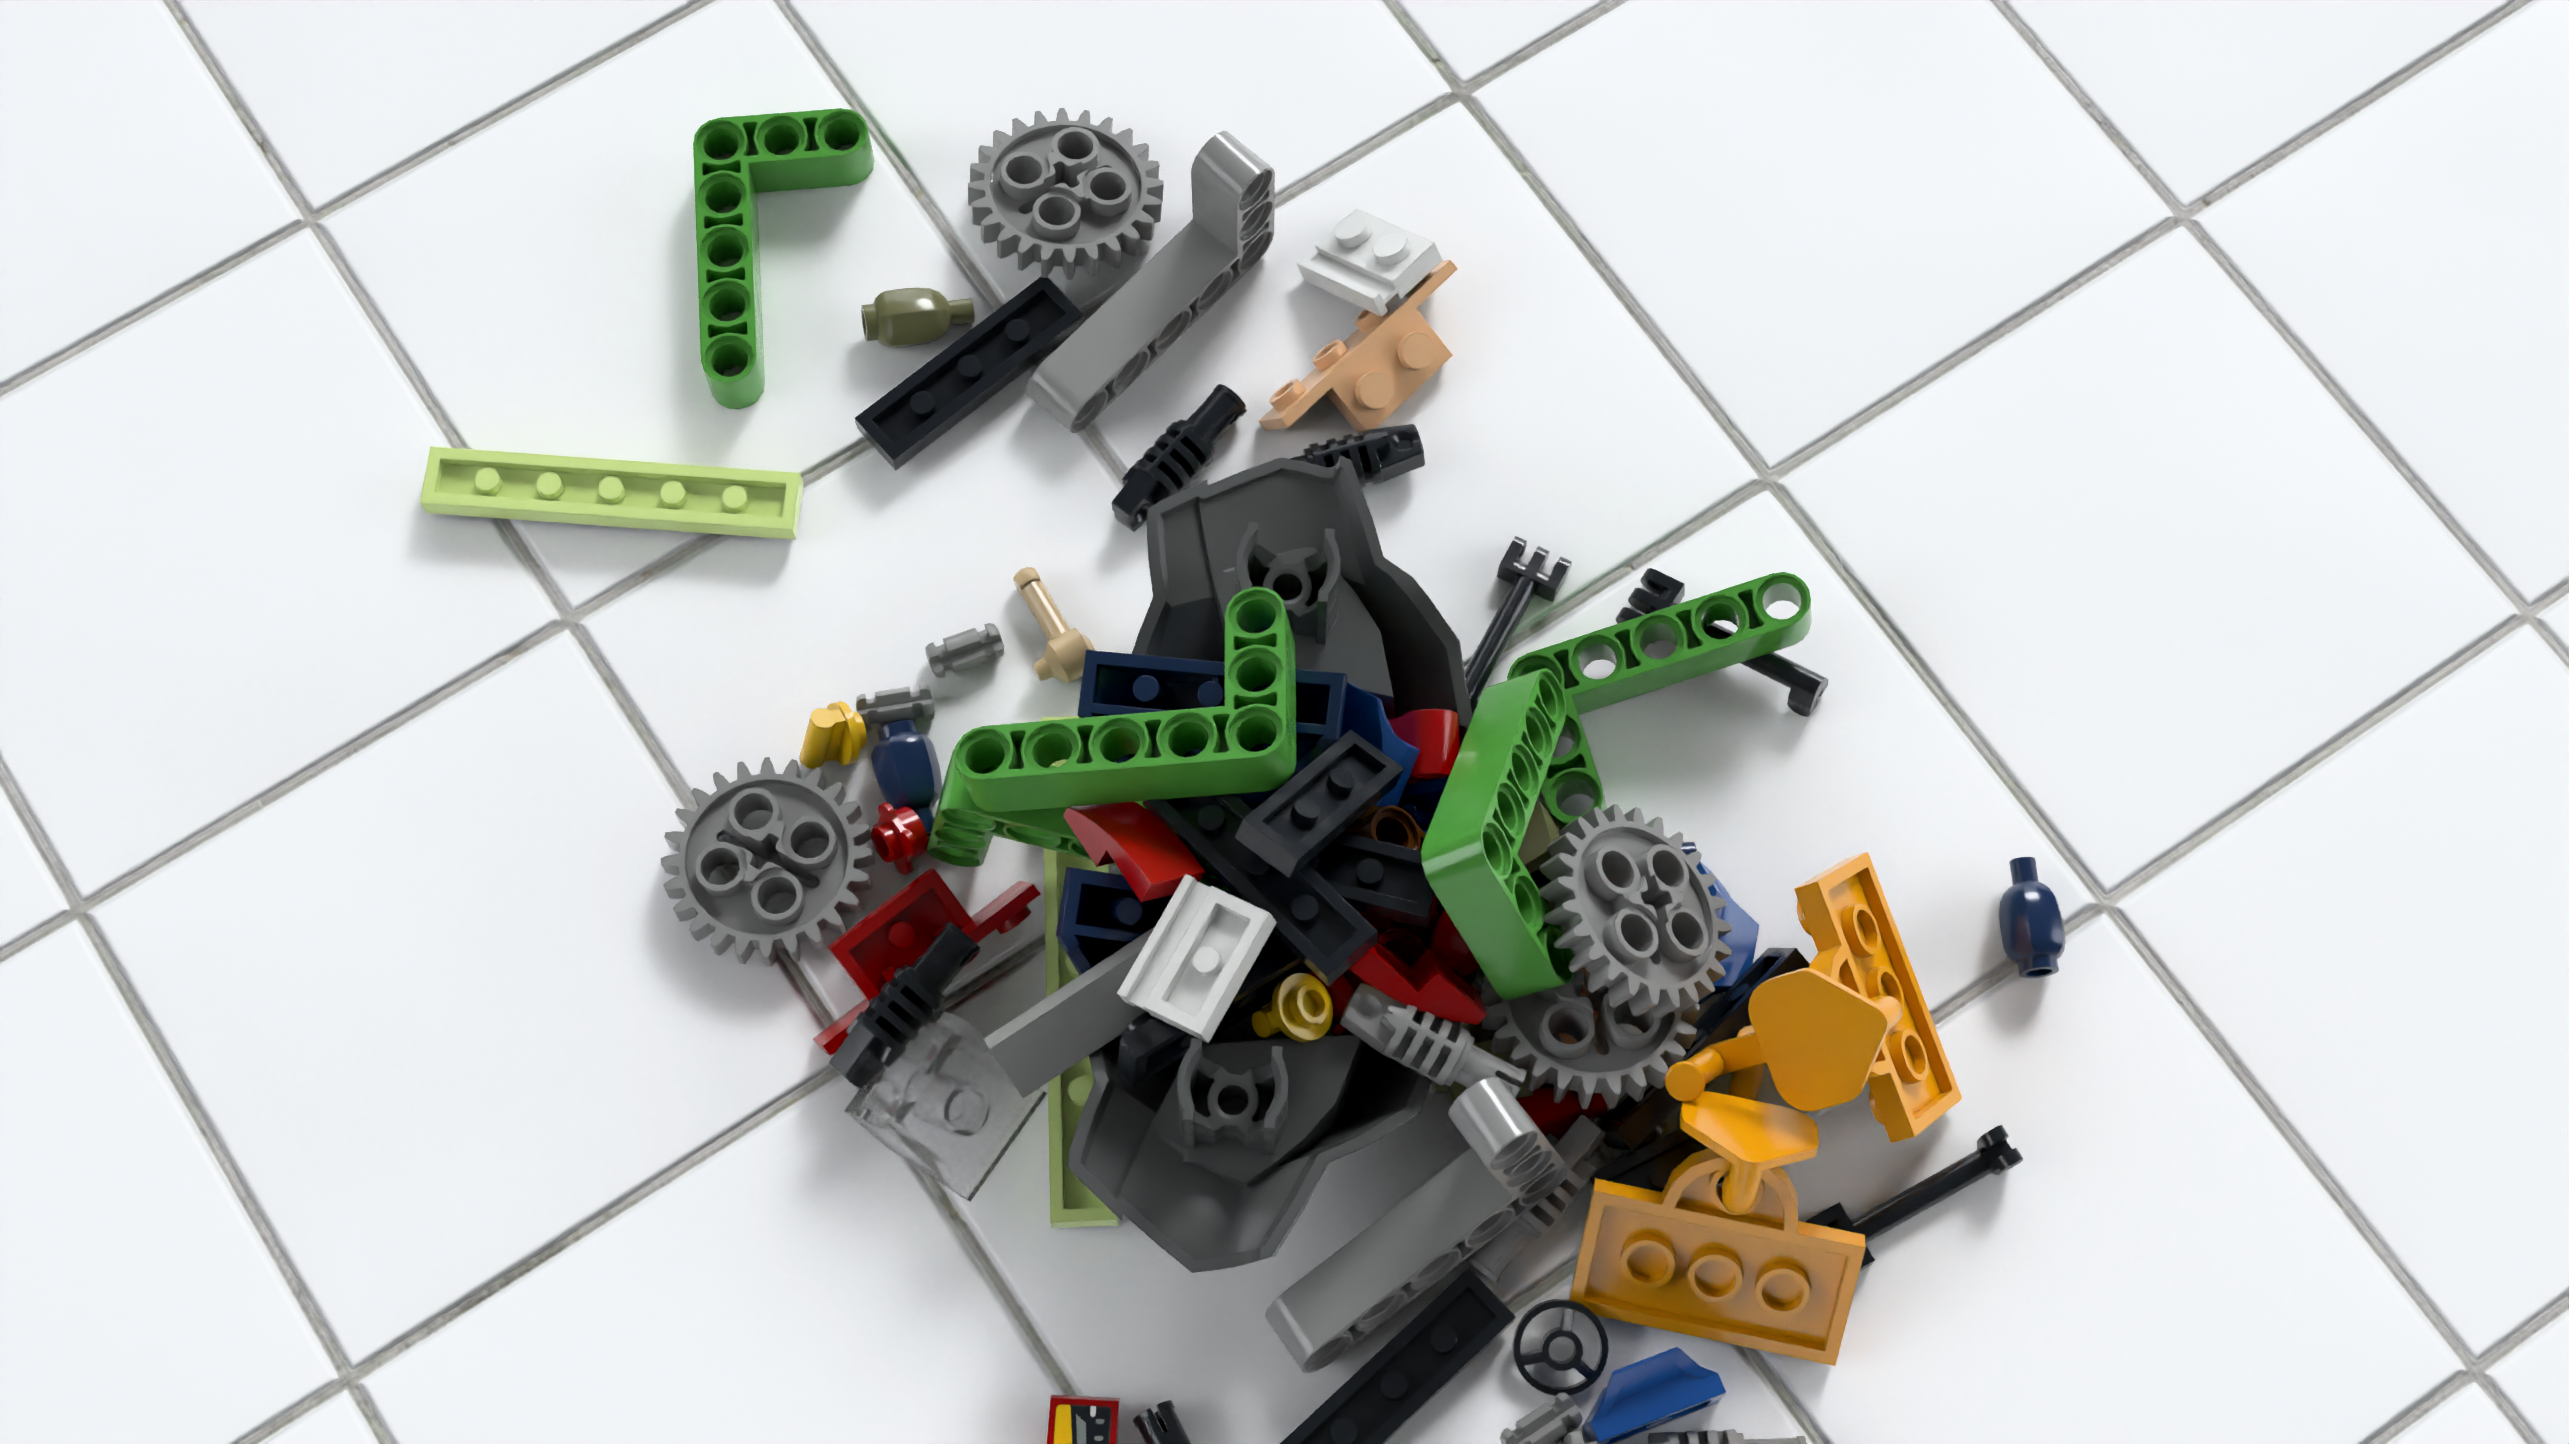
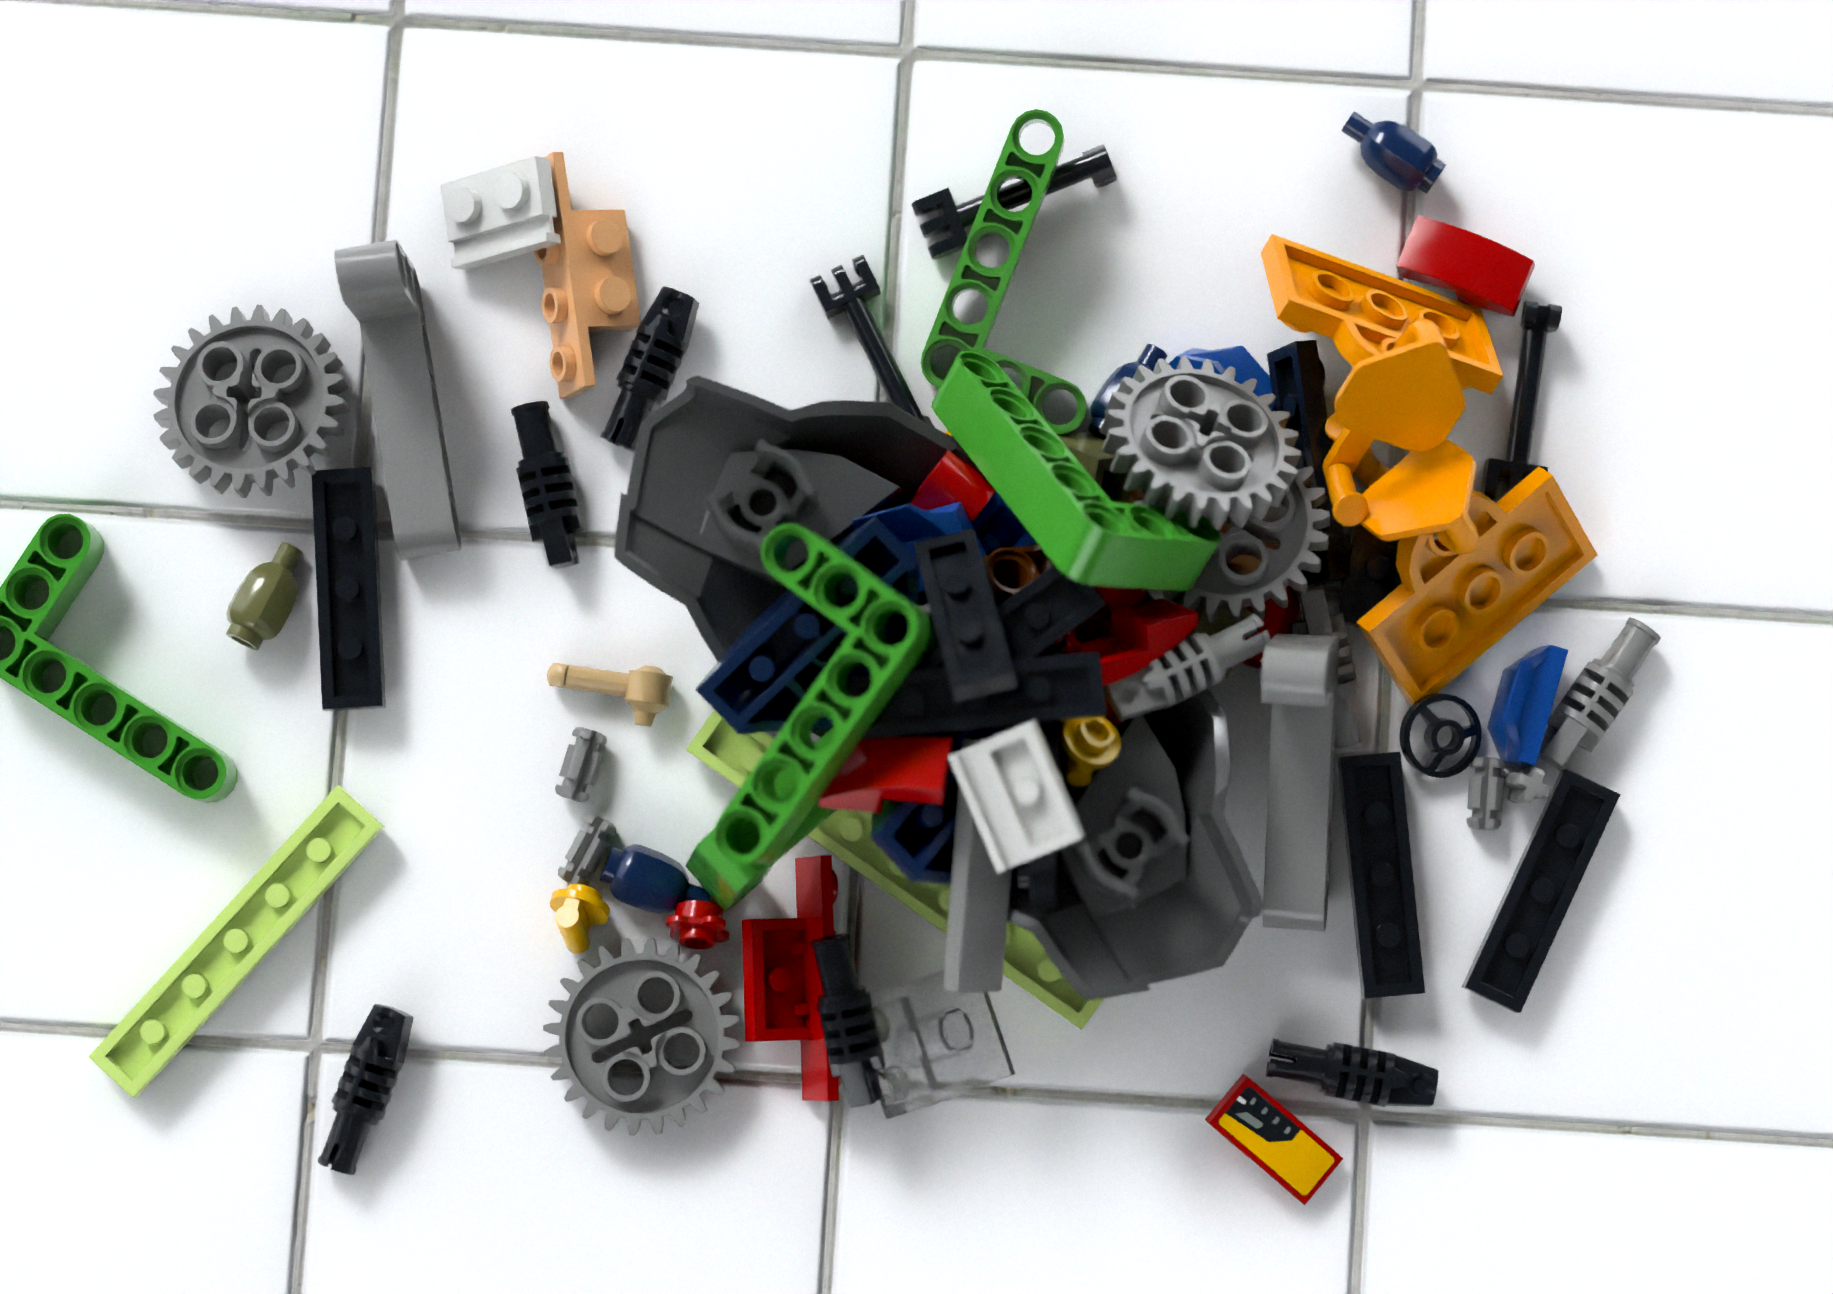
camera: 55 degrees left, 15 degrees up
(559, 676) = (366, 1085): none -> black hinge
(1989, 1053) = (1467, 263): none -> red slope

